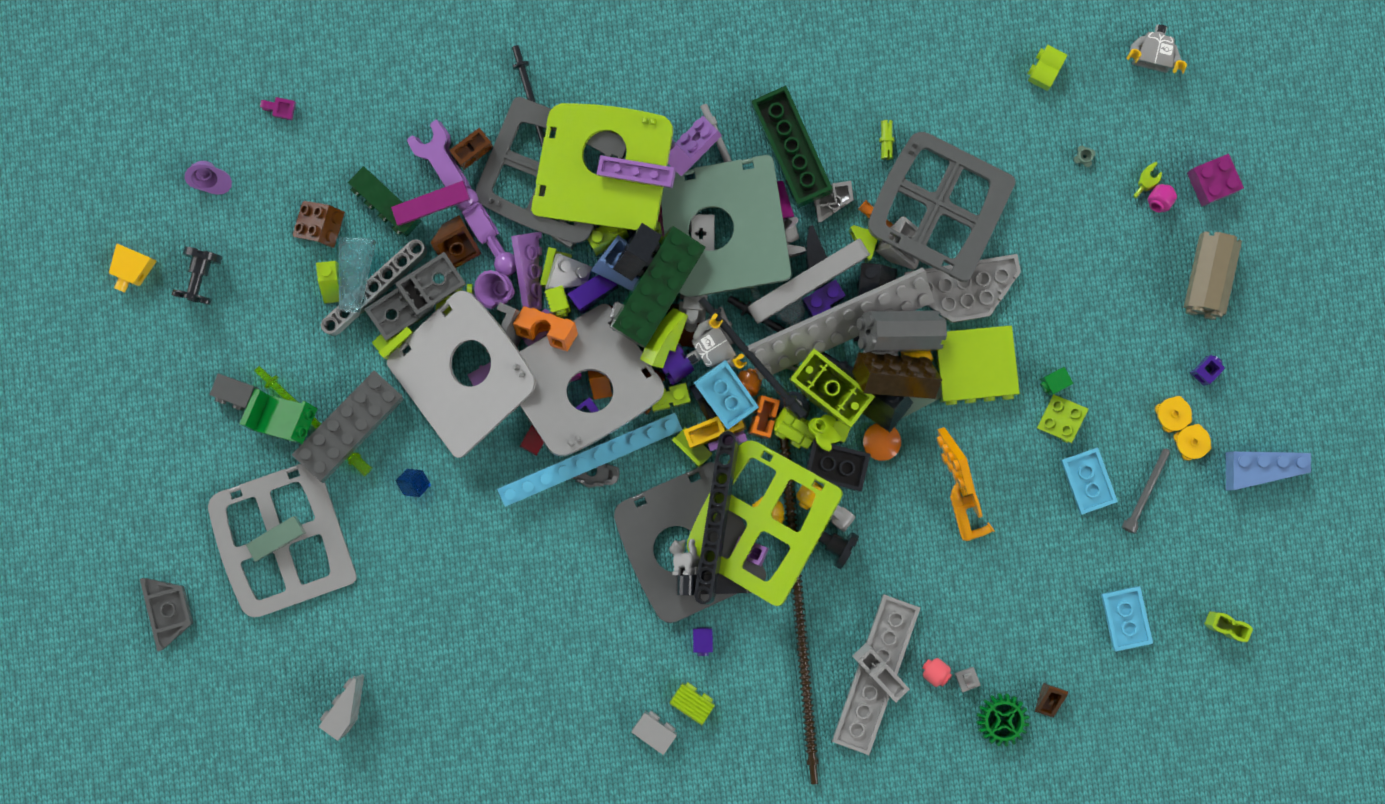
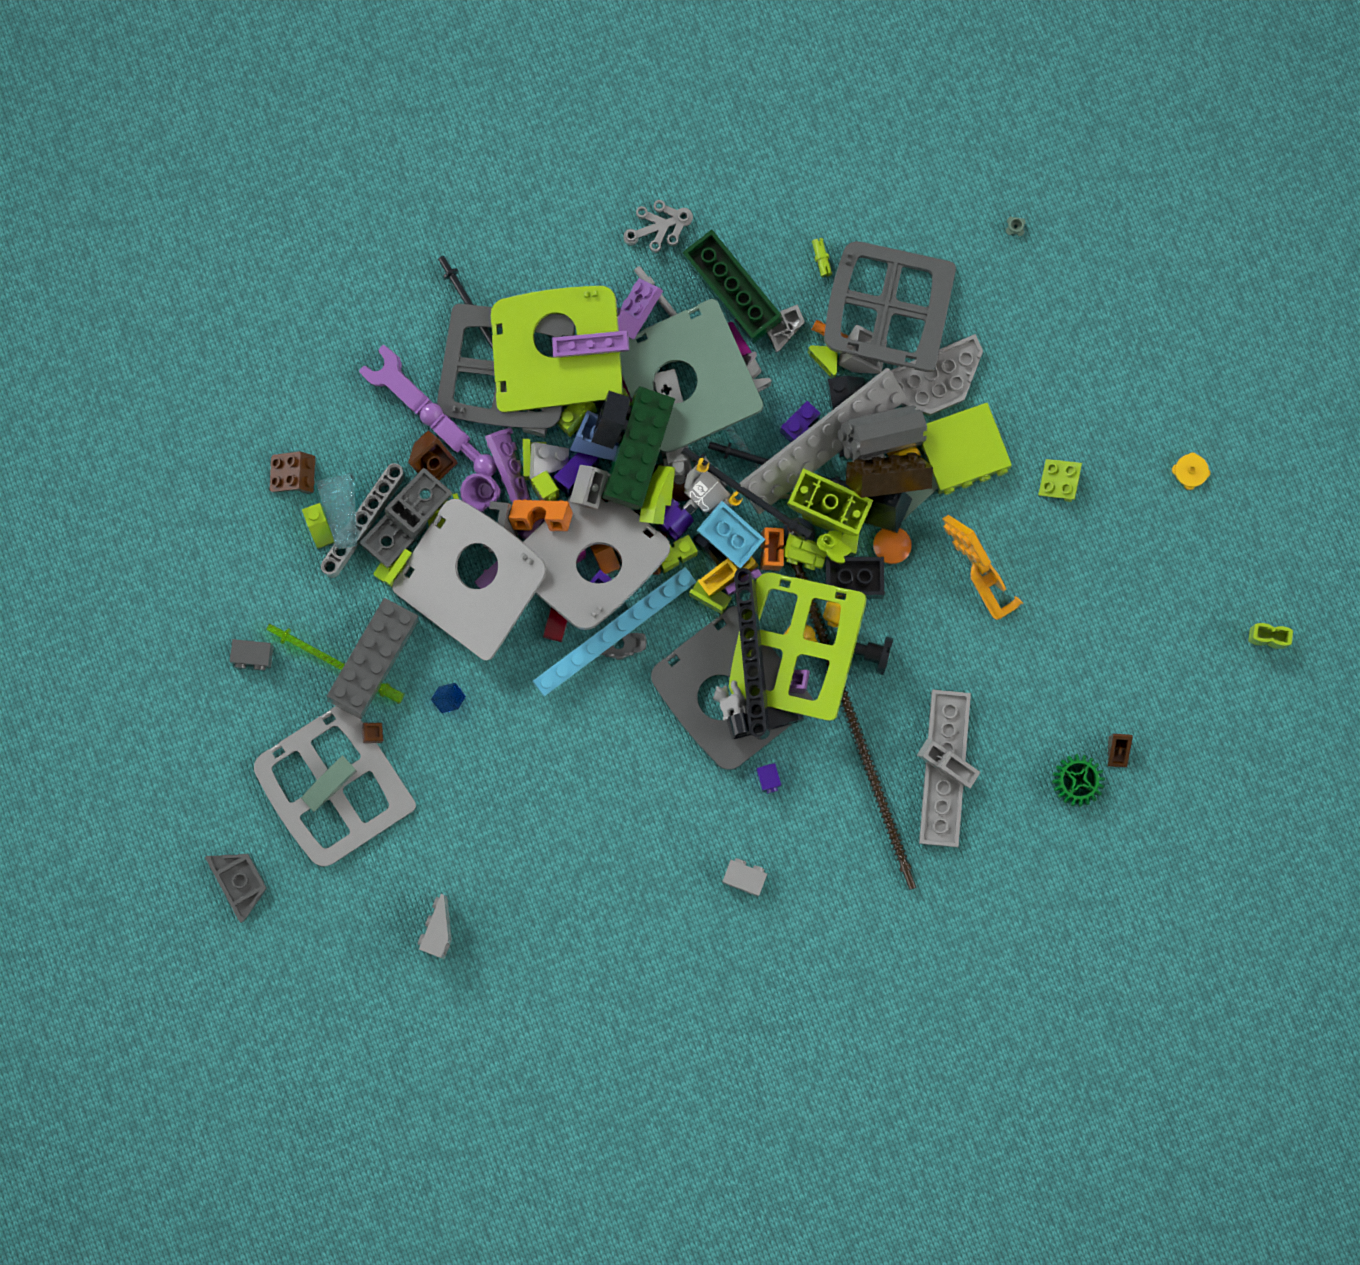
camera: 10 degrees left, 5 degrees down
(129, 267) = (119, 560): yellow torso -> none
(199, 267) = (188, 543): black piece -> none
(208, 178) = (175, 456): medium lavender piece -> none
(278, 417) = (303, 665): green panel -> none
(281, 108) = (229, 372): magenta plate -> none
(331, 498) = (372, 732): none -> reddish brown tile
(380, 198) = (351, 435): dark green brick -> none
(430, 203) = (398, 425): magenta tile -> none
(471, 148) = (424, 364): reddish brown brick -> none
(599, 312) = (588, 486): none -> light grey brick
(692, 703) = (774, 840): lime brick -> none
(737, 68) = (661, 225): none -> light grey plant
(750, 381) = (751, 516): orange head -> none
(791, 314) = (772, 440): clear light blue slope -> none
(808, 281) = (781, 408): light grey beam -> none
(814, 249) = (783, 387): black slope -> none
(842, 518) = (872, 627): light grey piece -> none
(936, 672) = (1002, 751): coral head -> none
(967, 679) = (1034, 751): light grey tile -> none
(1048, 65) = (957, 151): lime brick -> none
(1056, 381) = (1044, 445): green brick -> none
(1088, 481) = (1101, 532): medium azure plate -> none
(1126, 618) = (1172, 654): medium azure plate -> none
(1131, 523) = (1152, 563): dark grey piece -> none
(1147, 182) = (1080, 235): lime hand -> none
(1157, 52) = (1058, 111): light grey torso -> none
(1162, 198) = (1100, 247): dark pink head -> none
(1174, 414) = (1166, 448): yellow piece -> none
(1212, 275) = (1166, 307): dark tan brick -> none
(1215, 180) = (1145, 217): magenta brick -> none
(1215, 368) = (1183, 405): dark purple brick -> none
(1256, 468) = (1261, 477): medium blue wedge -> none

